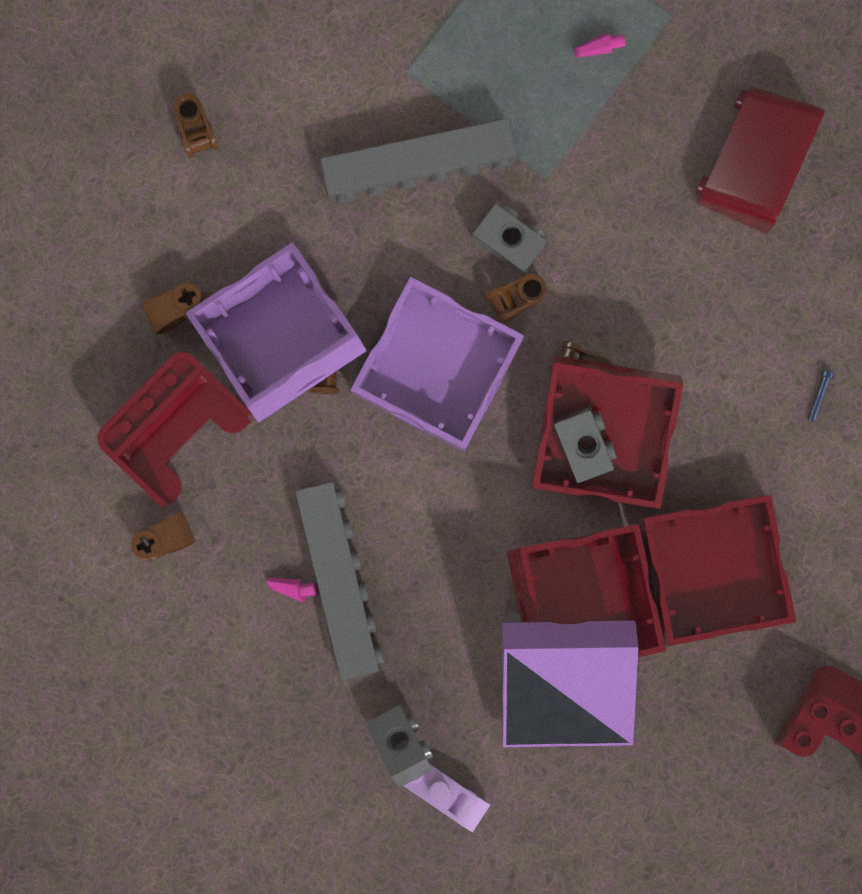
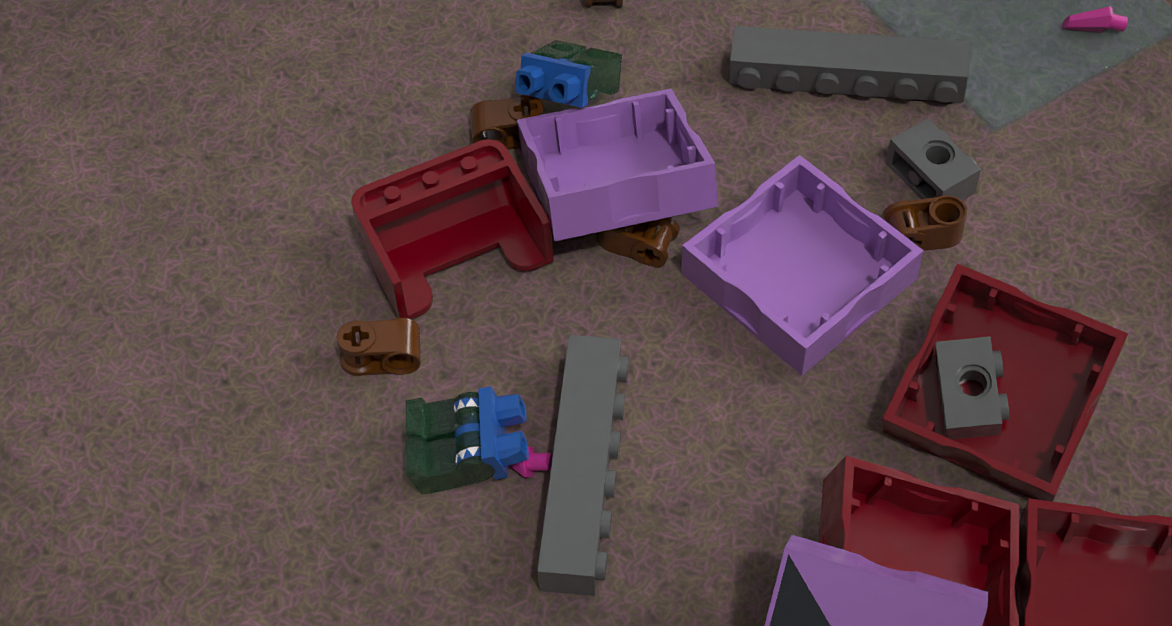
camera: 20 degrees right, 30 degrees down
(208, 257) = (568, 73): none -> hips
(263, 591) = (463, 439): none -> hips

